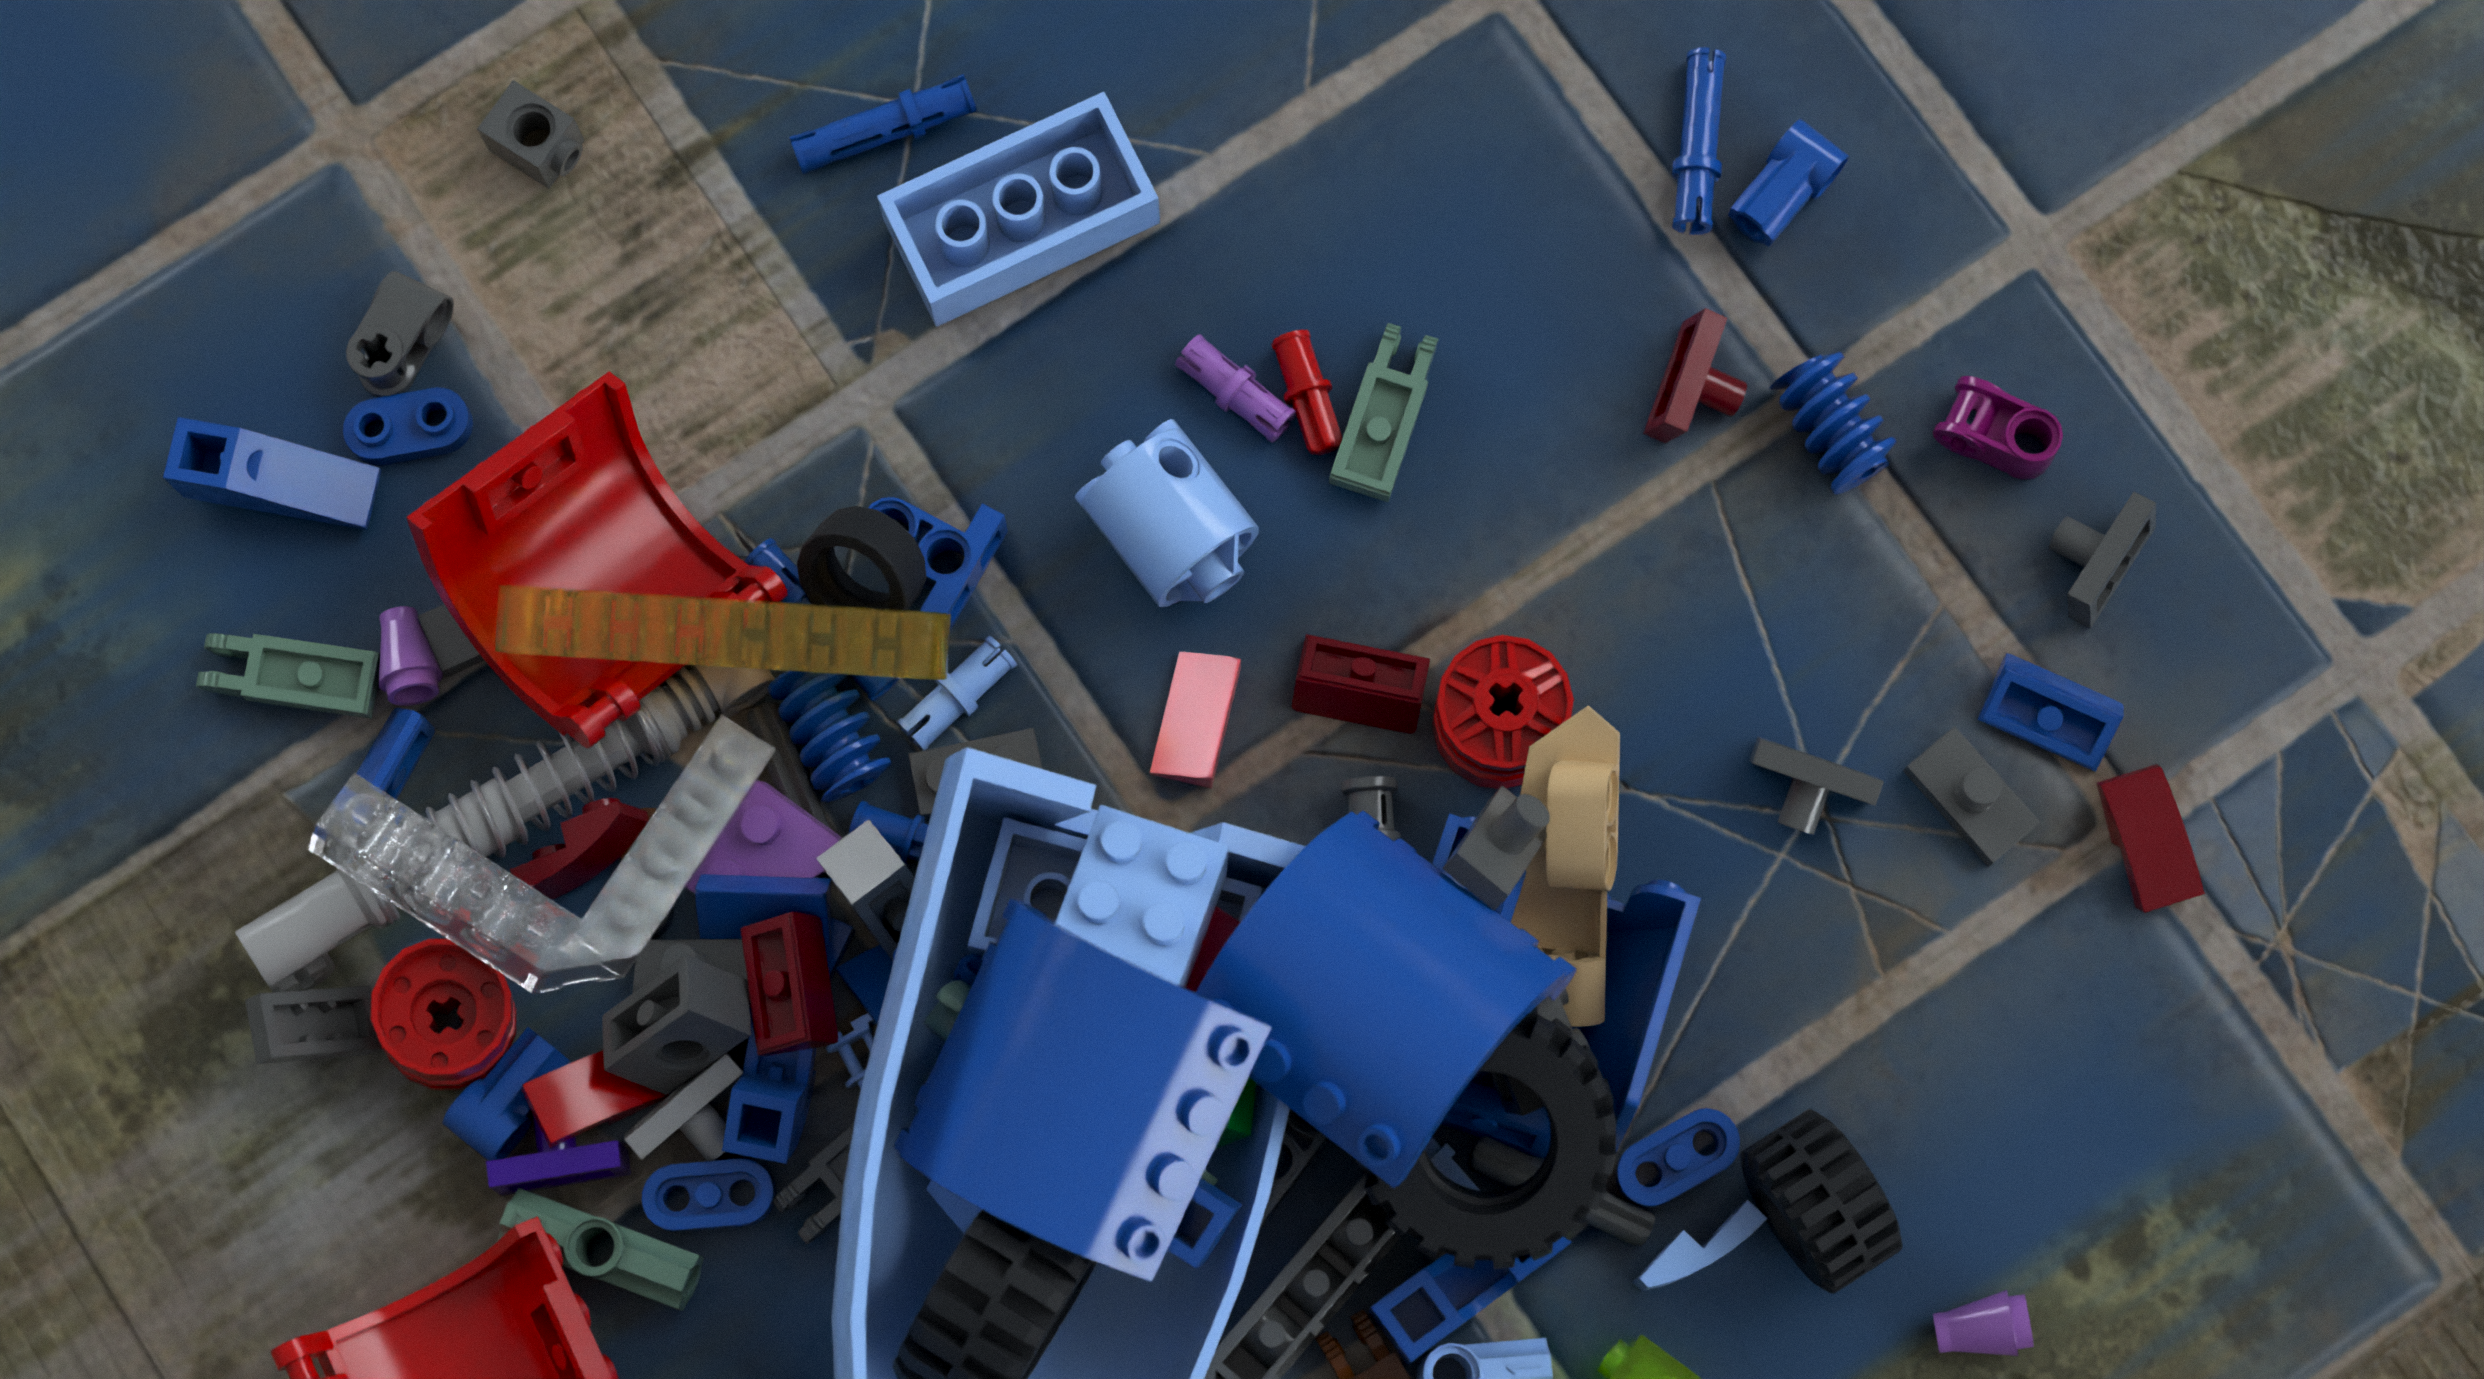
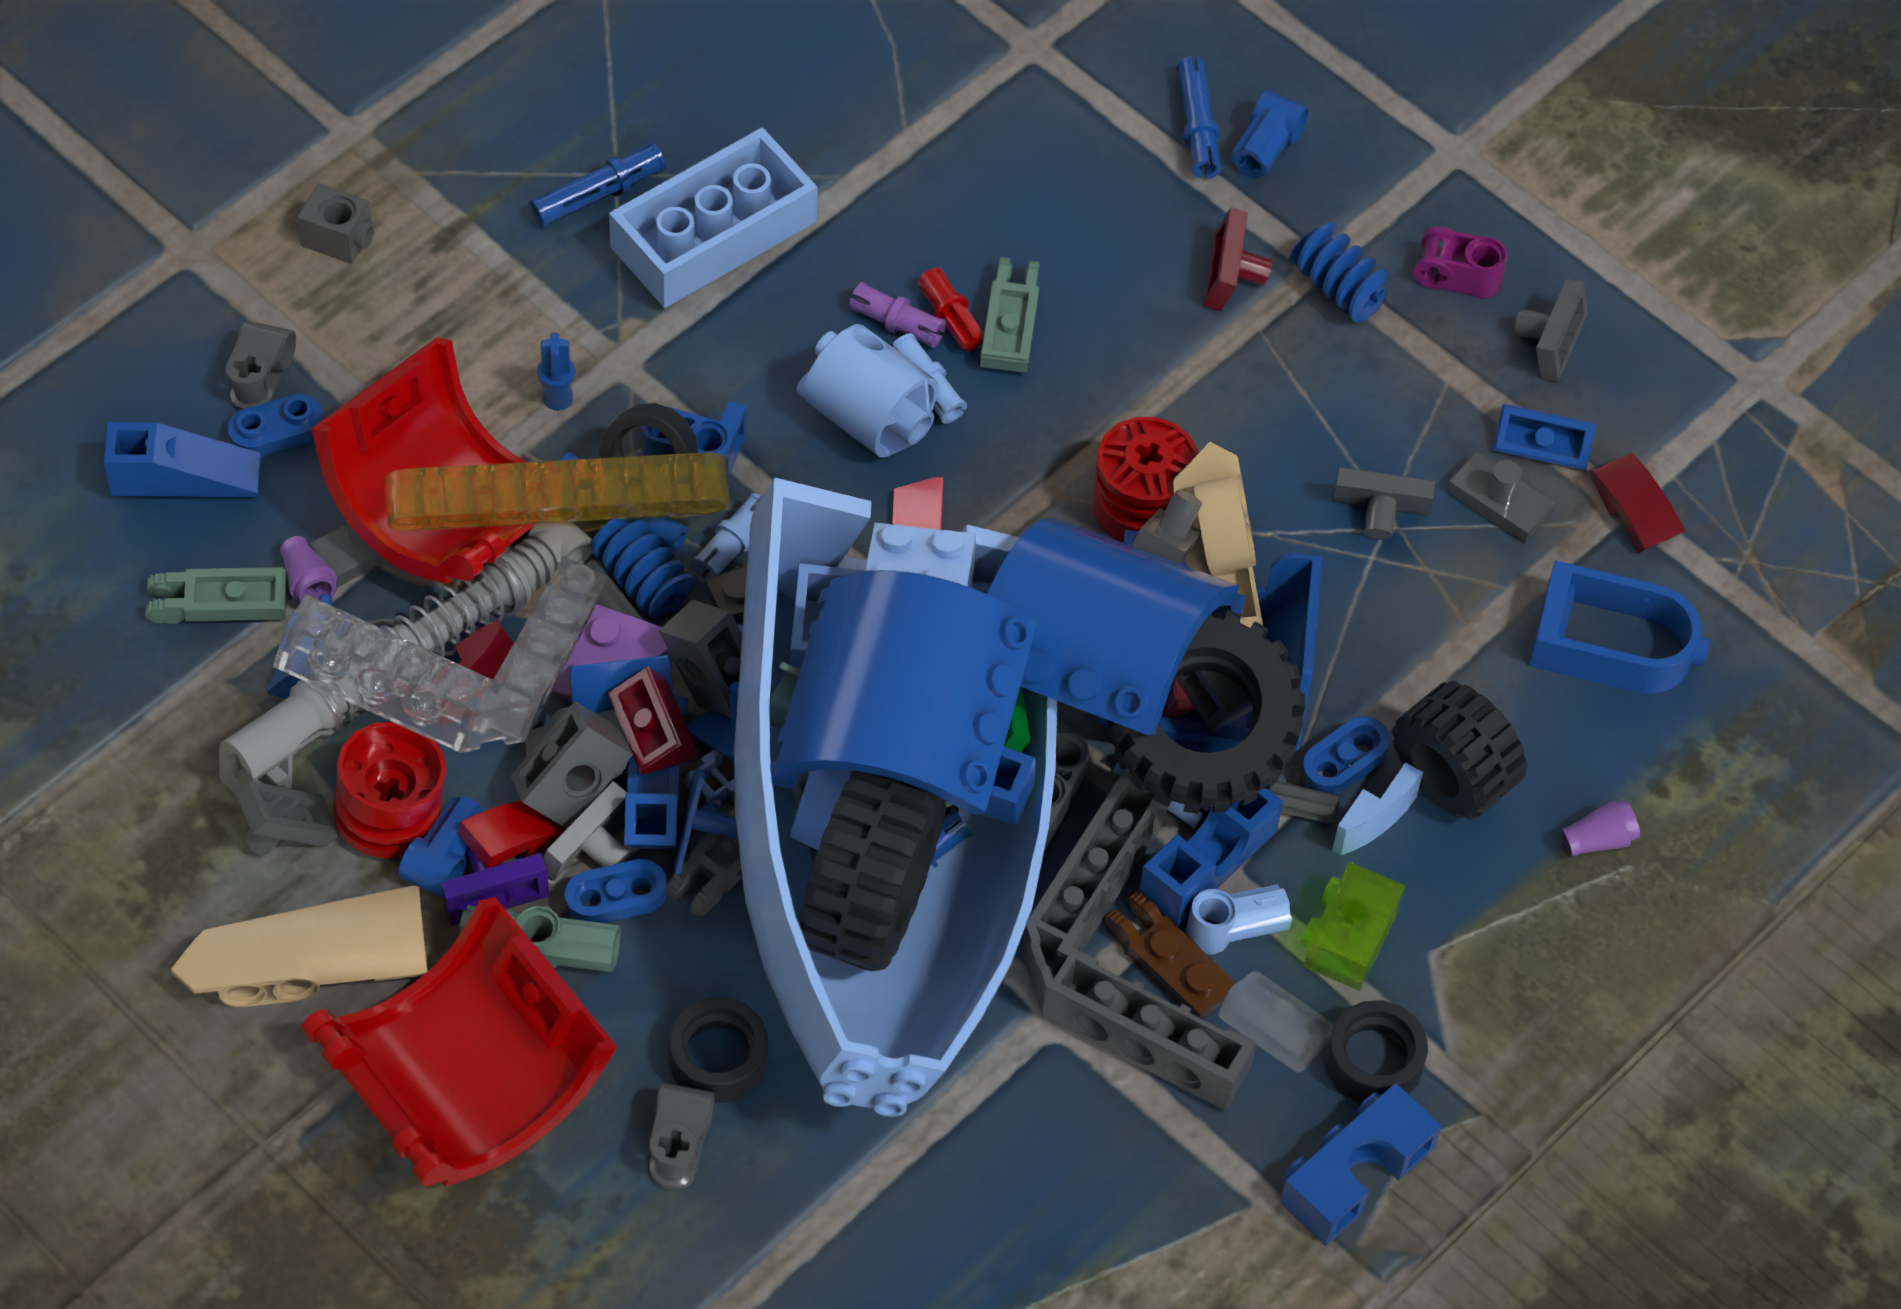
camera: 15 degrees left, 20 degrees down
(317, 1211) = (299, 950): none -> tan panel
(769, 422) = (556, 372): none -> blue axle
(831, 1132) = (704, 819): none -> blue shield
(1255, 493) = (948, 400): none -> light blue pin
(1360, 684) = (1034, 492): dark red slope -> none
(1999, 998) = (1623, 595): none -> blue window

